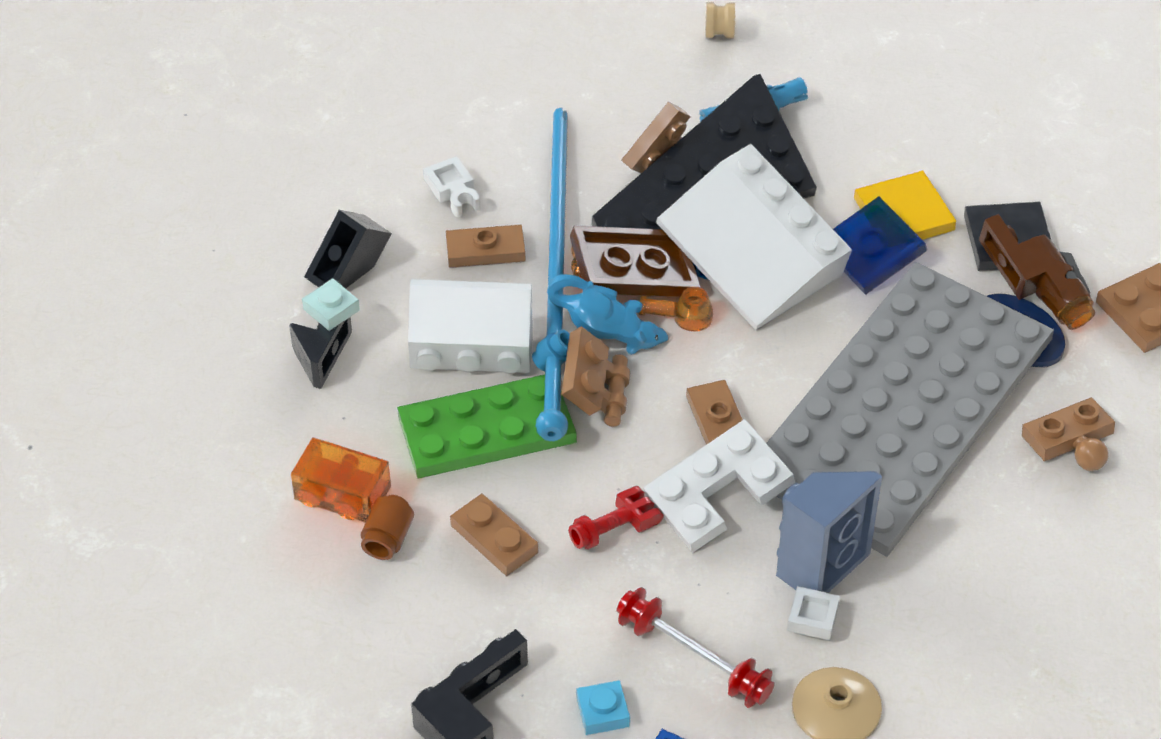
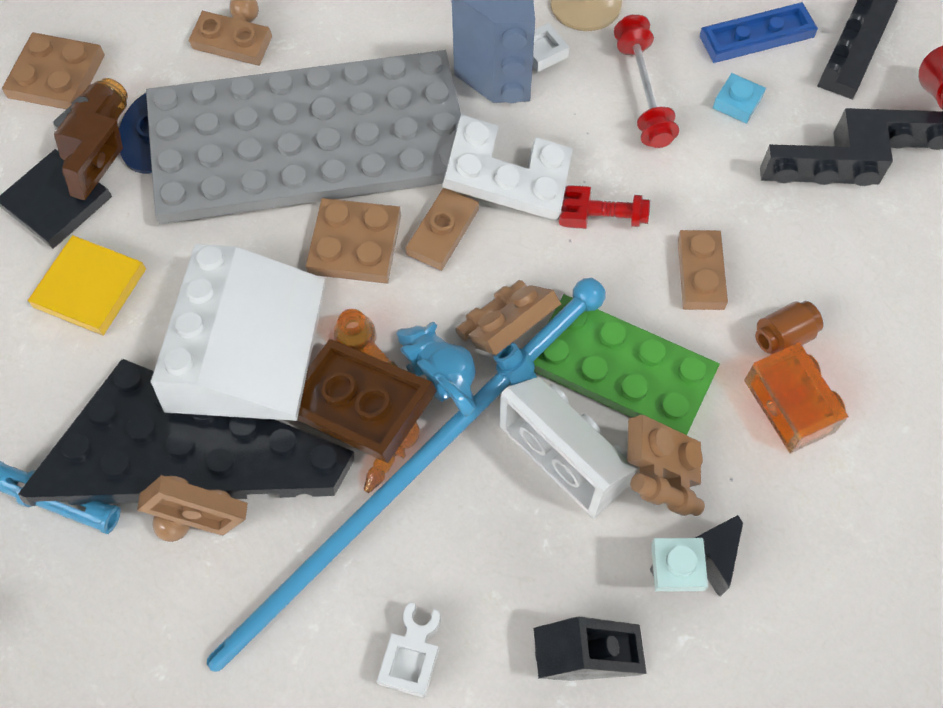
camera: 135 degrees left, 15 degrees up
(400, 368) = (667, 465): none -> medium nougat plate
(485, 245) = (449, 555): medium nougat plate -> none
(770, 364) = (354, 240): none -> medium nougat plate
(878, 243) = (151, 263): clear blue tile -> none

